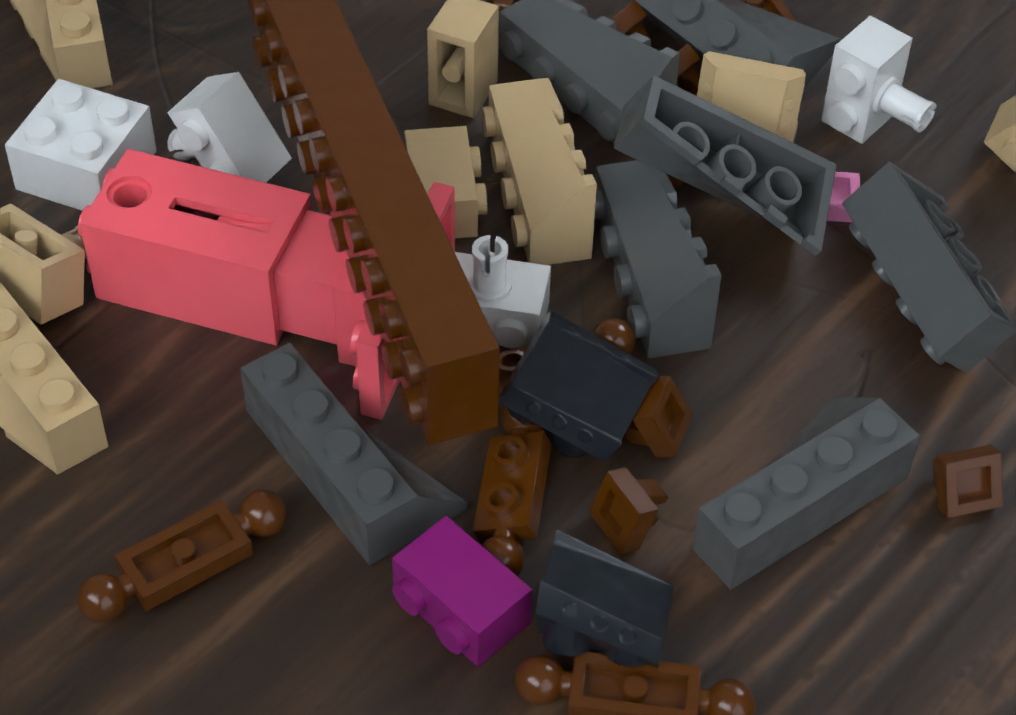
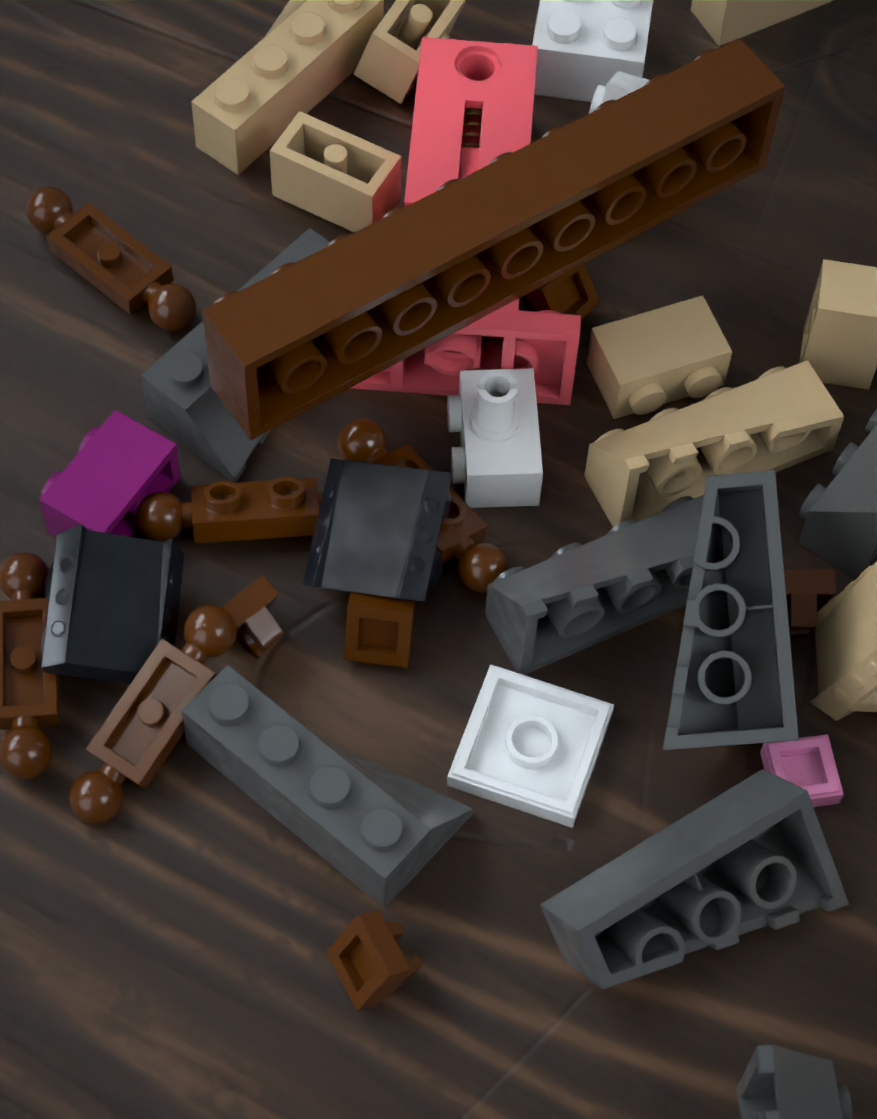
camera: 75 degrees right, 10 degrees up
(171, 349) = (334, 173): none -> tan brick
(717, 591) = (149, 715): none -> reddish brown plate
(780, 350) = (530, 745): none -> white tile

